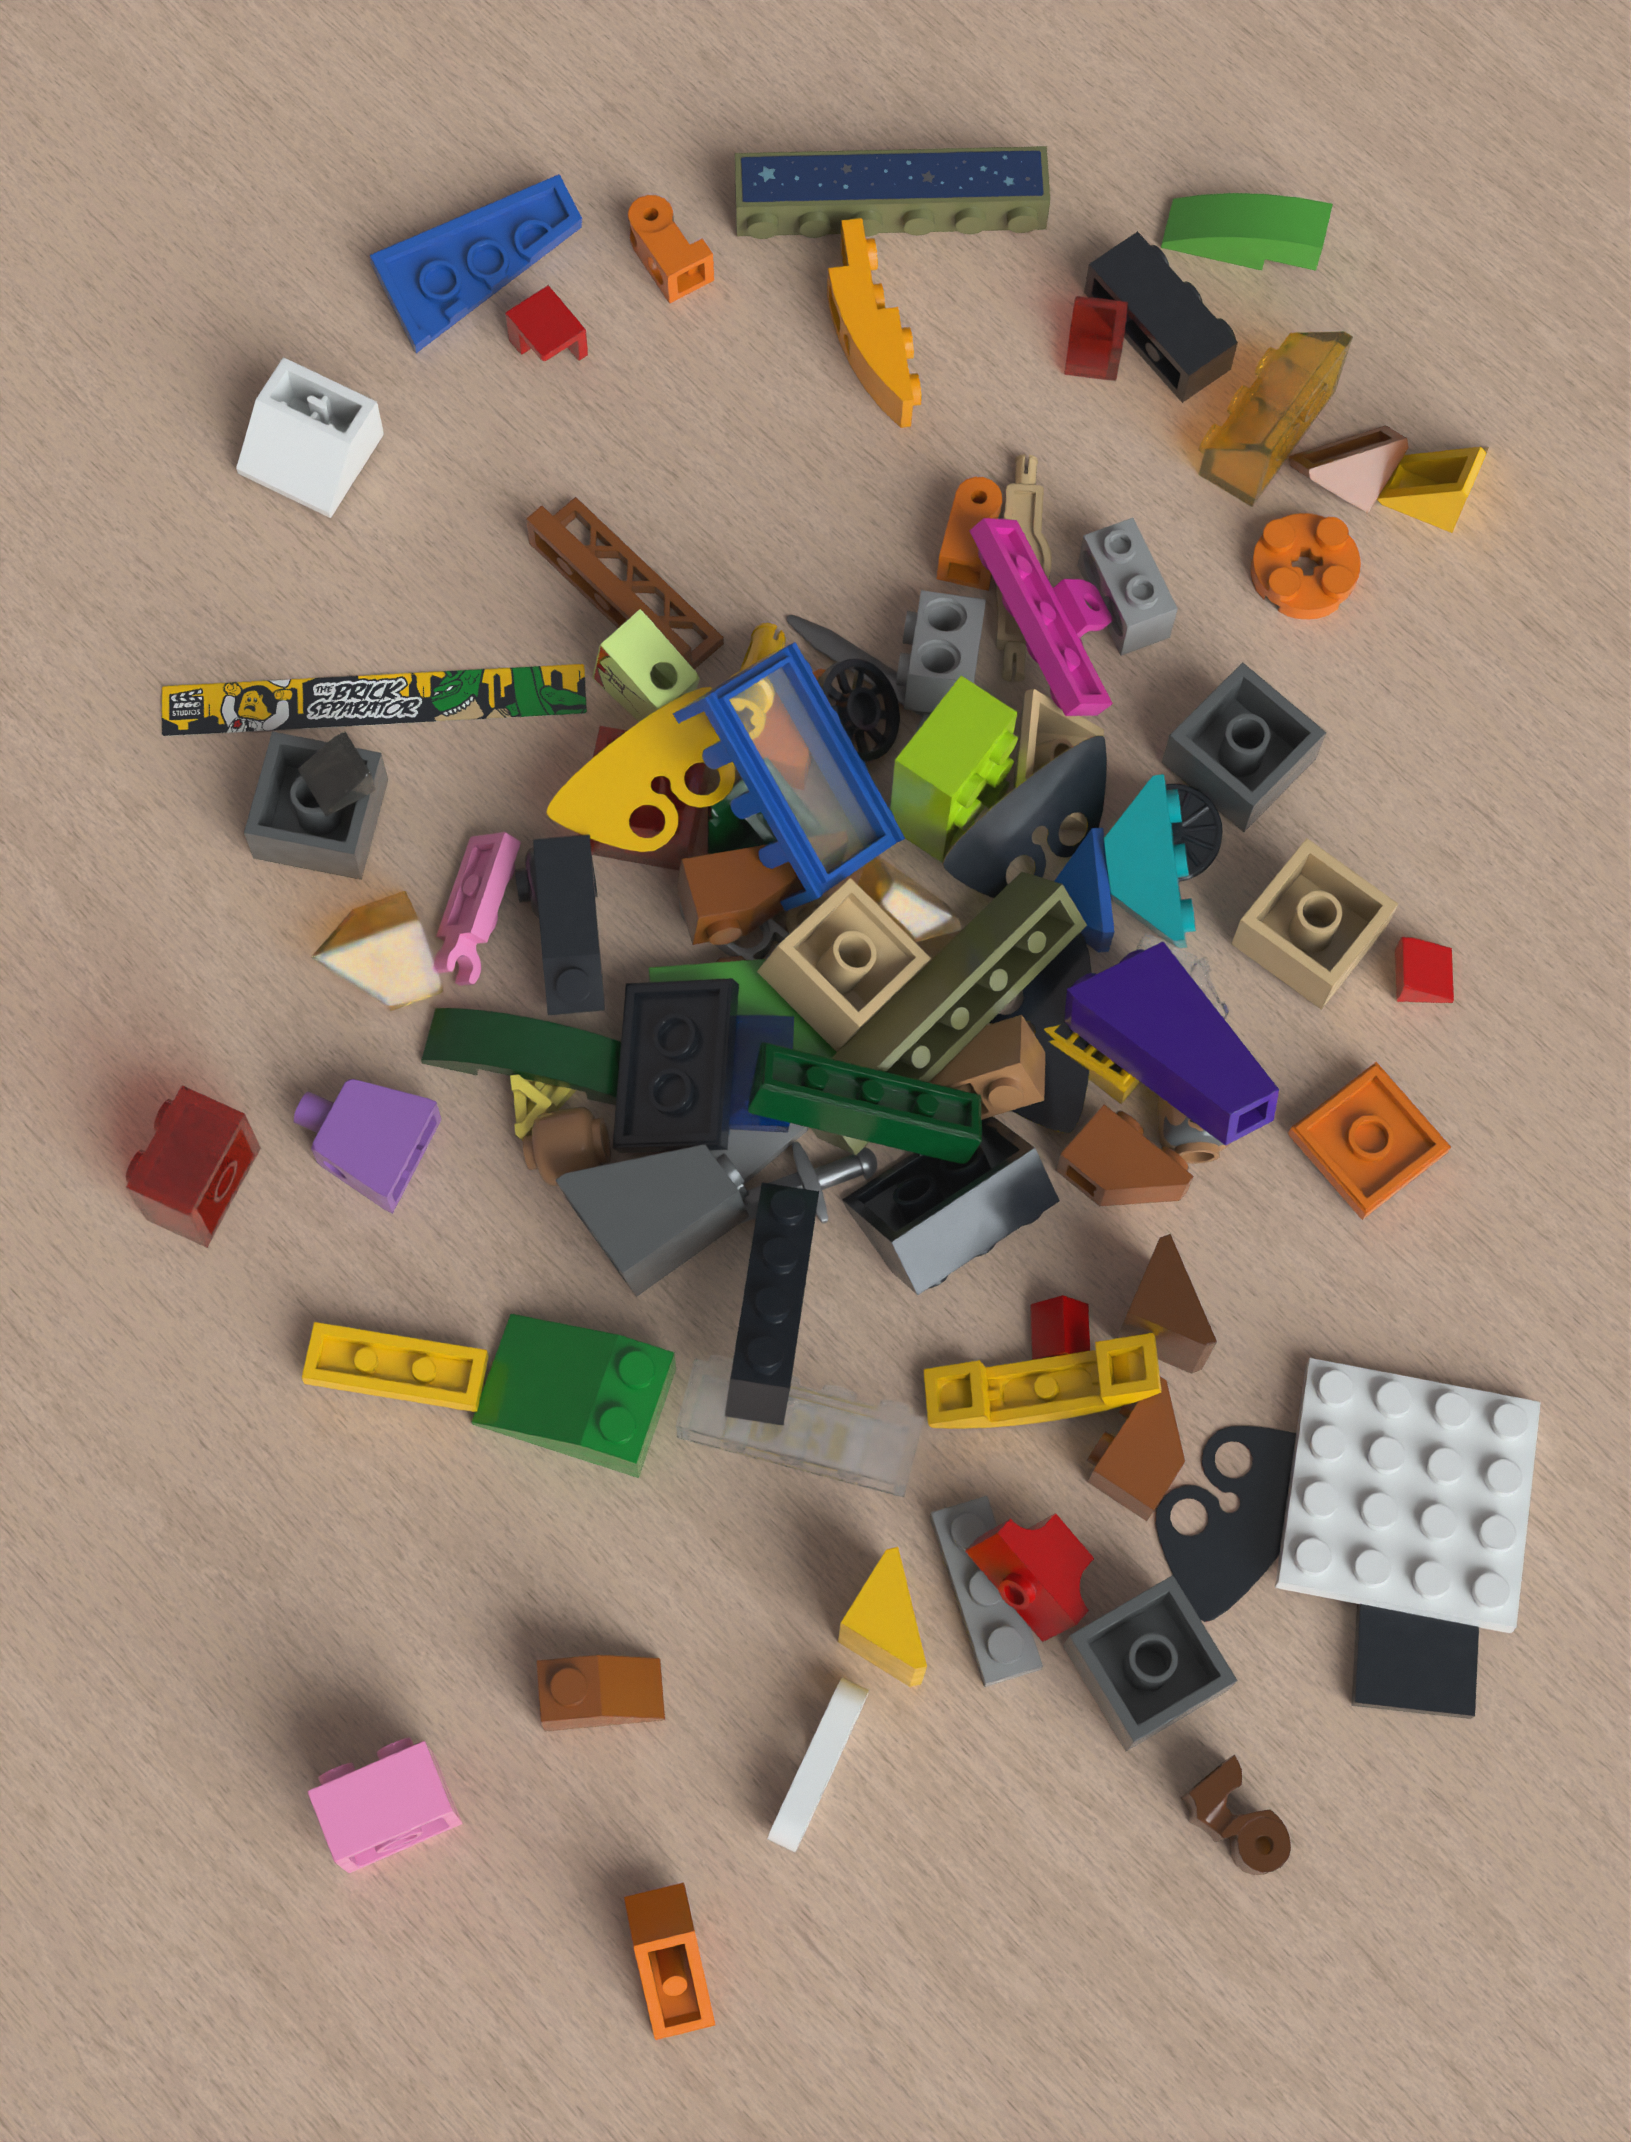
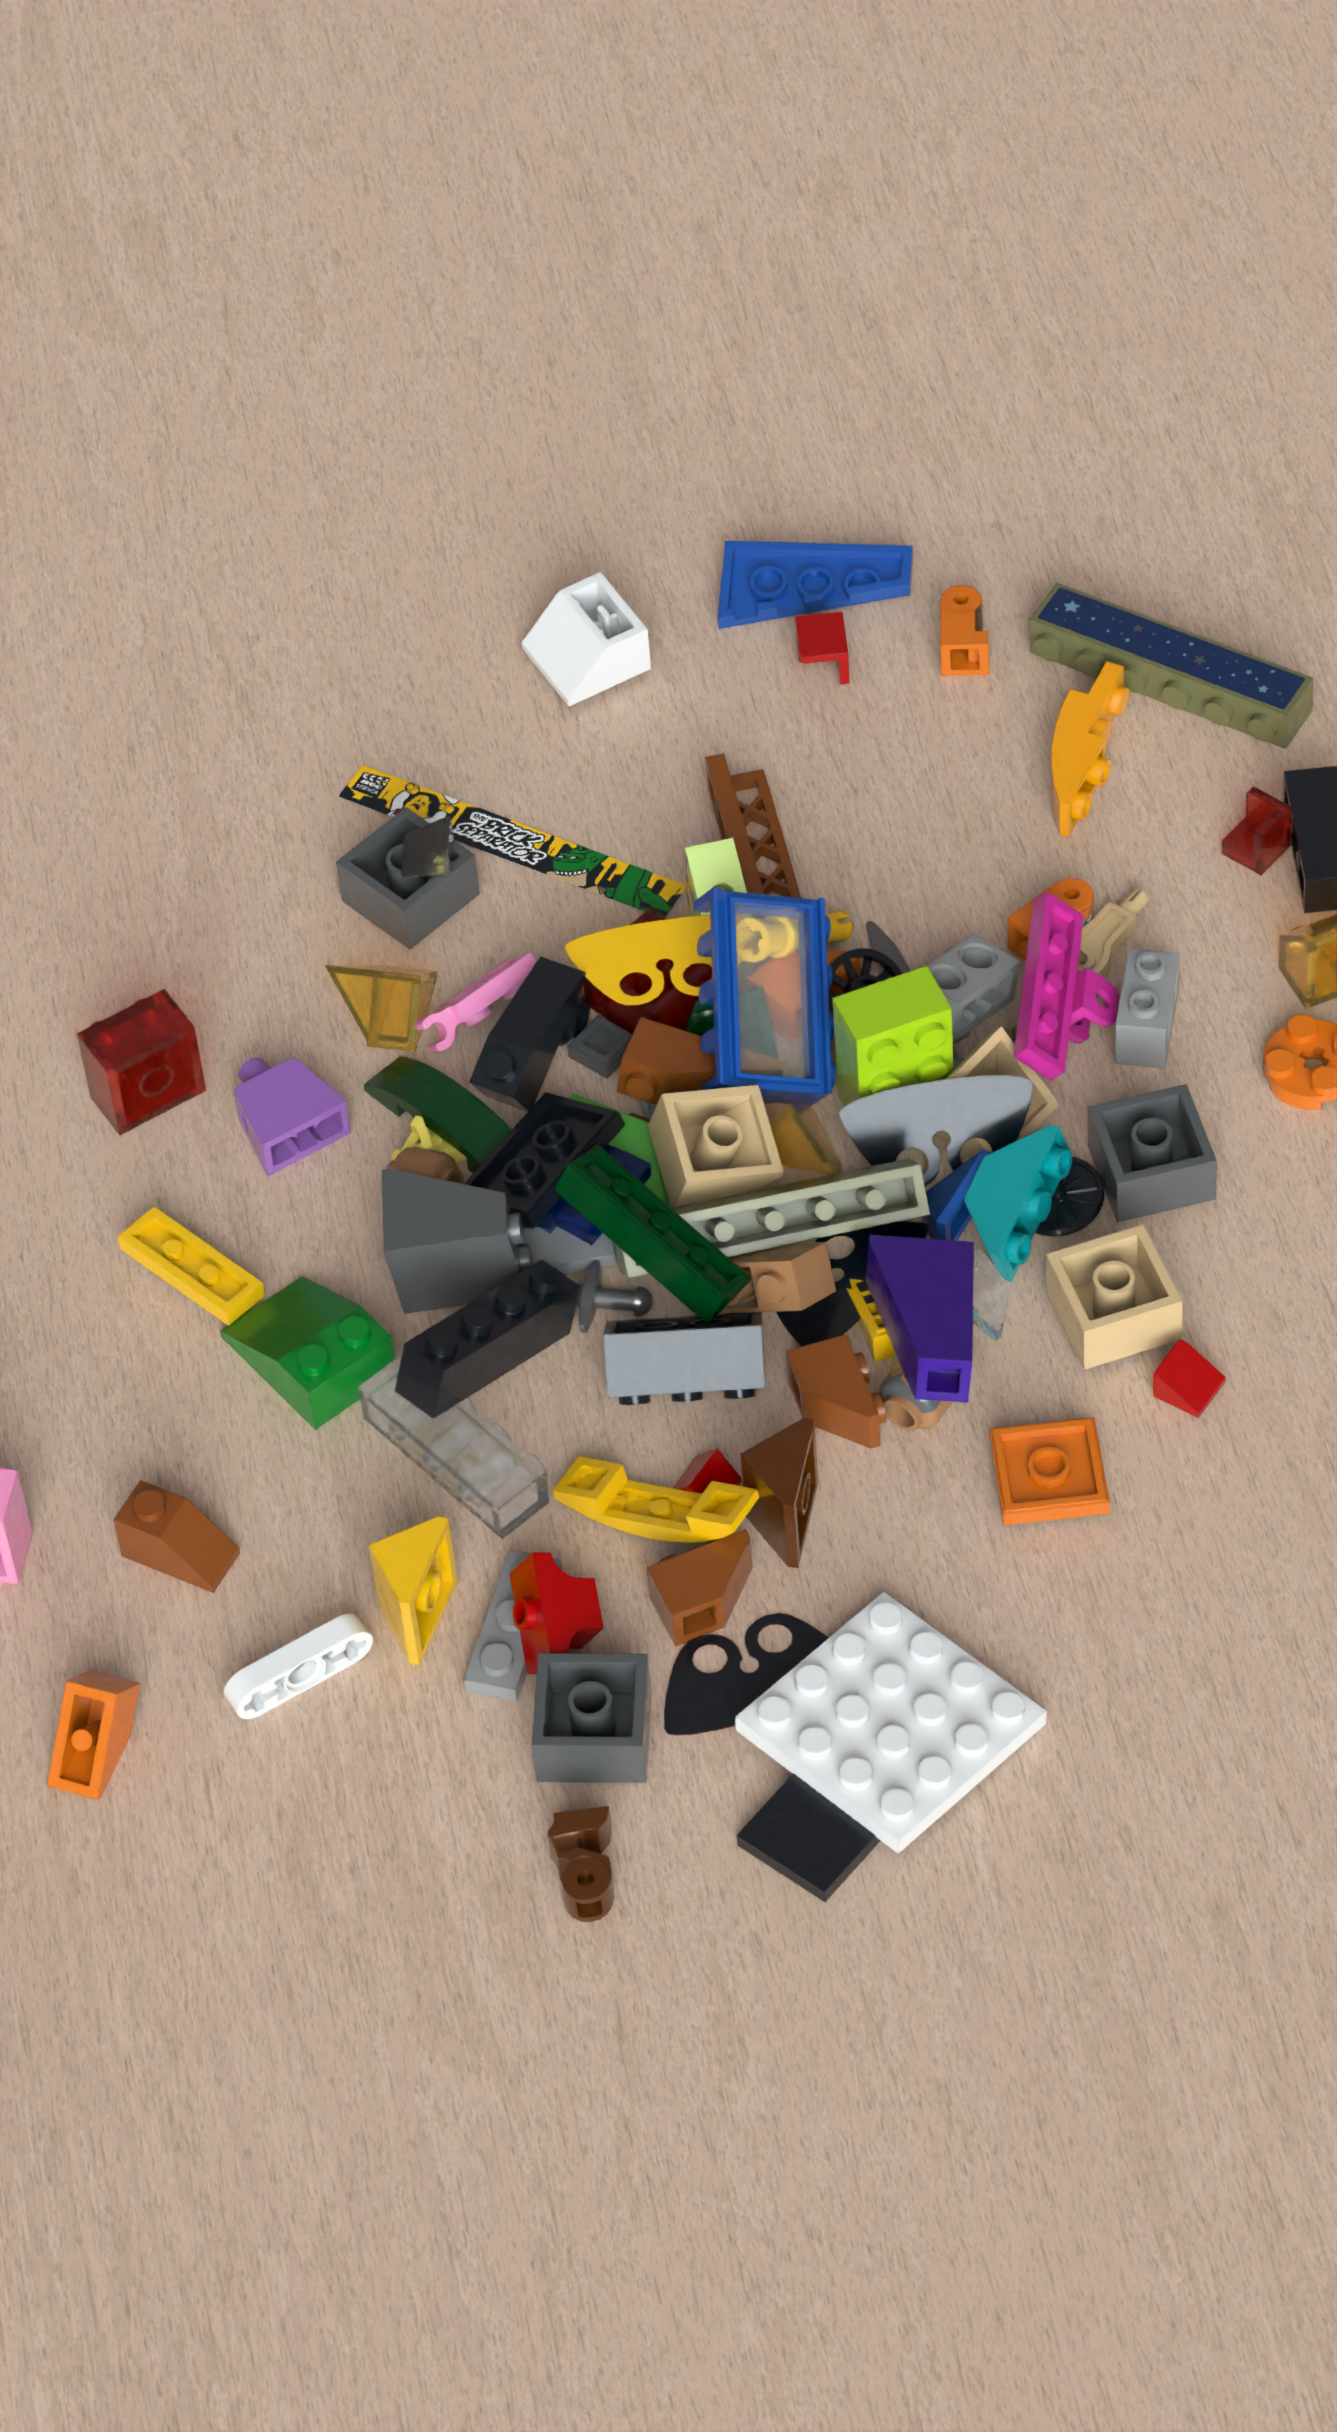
camera: 40 degrees right, 20 degrees down
(628, 891) = (600, 1046): none -> dark grey tile

